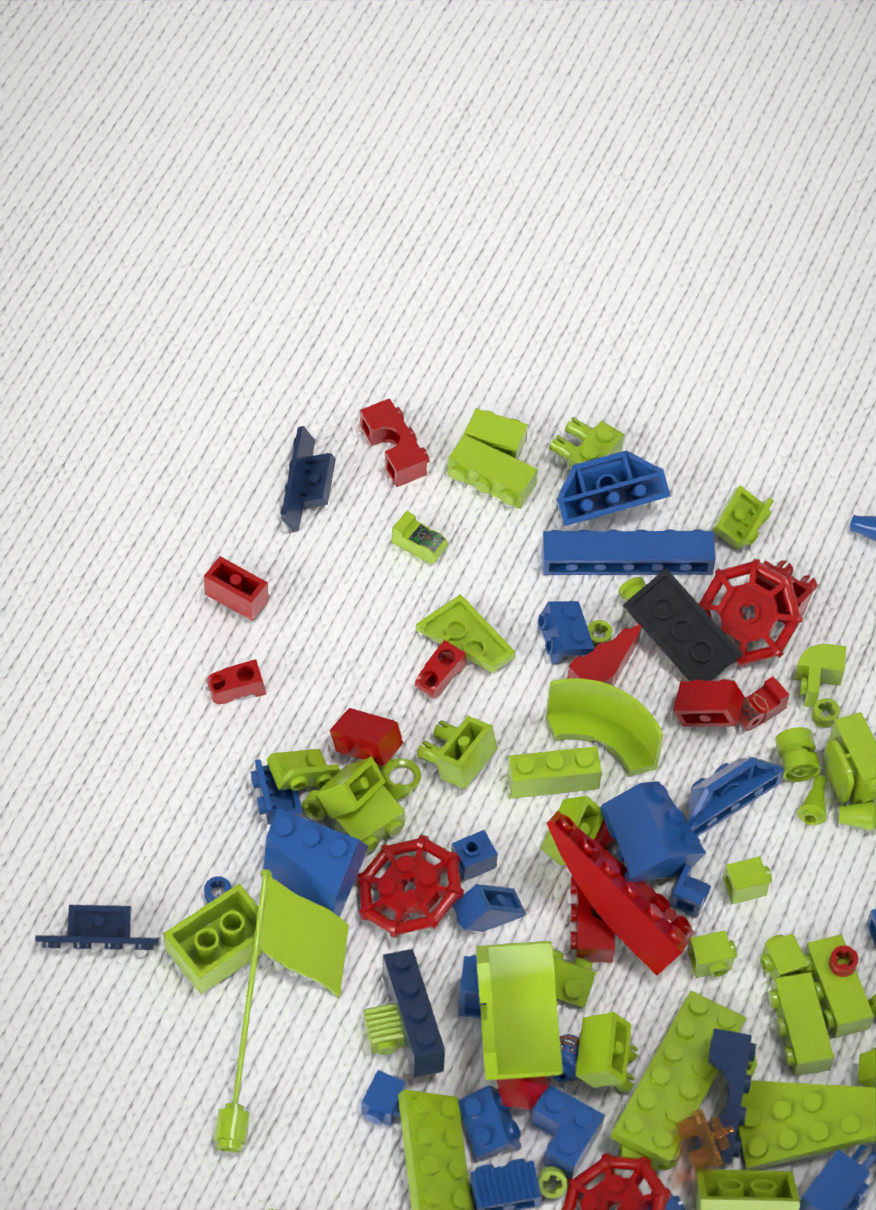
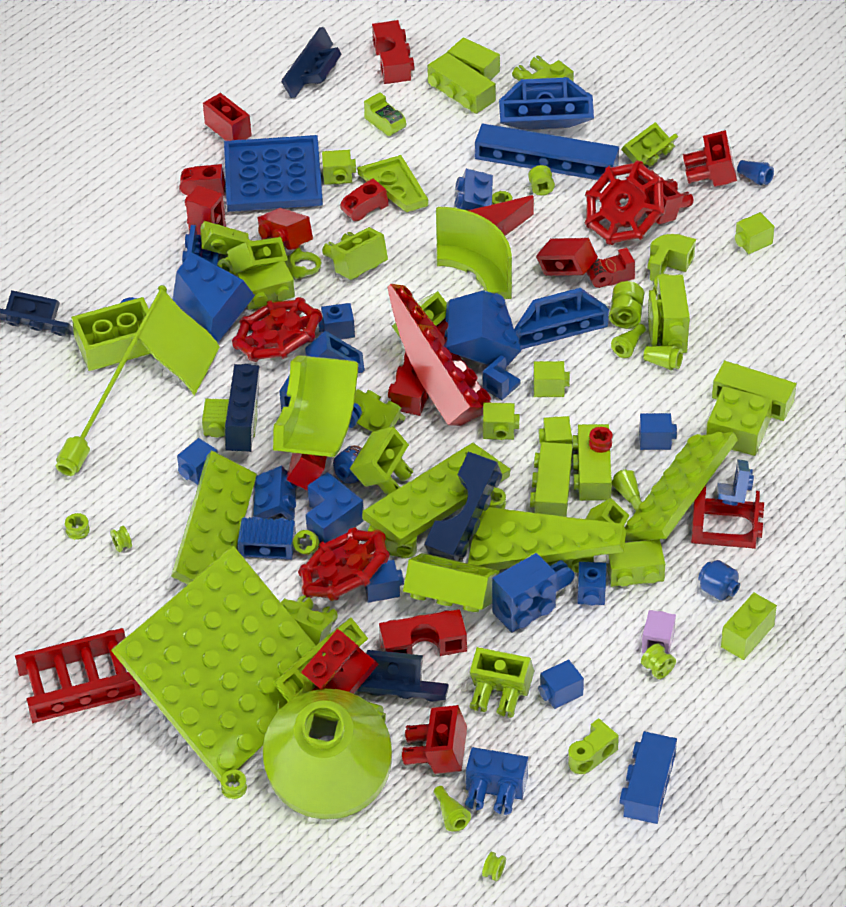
camera: 20 degrees right, 10 degrees down
(262, 734) = (203, 206): none -> red brick
(316, 652) = (272, 173): none -> blue plate
(391, 627) = (338, 167): none -> lime brick
(554, 772) = (426, 277): lime brick -> none
(682, 629) = (566, 203): black tile -> none
(709, 1153) = (429, 517): clear orange hips -> none
(829, 519) = (717, 160): none -> red brick

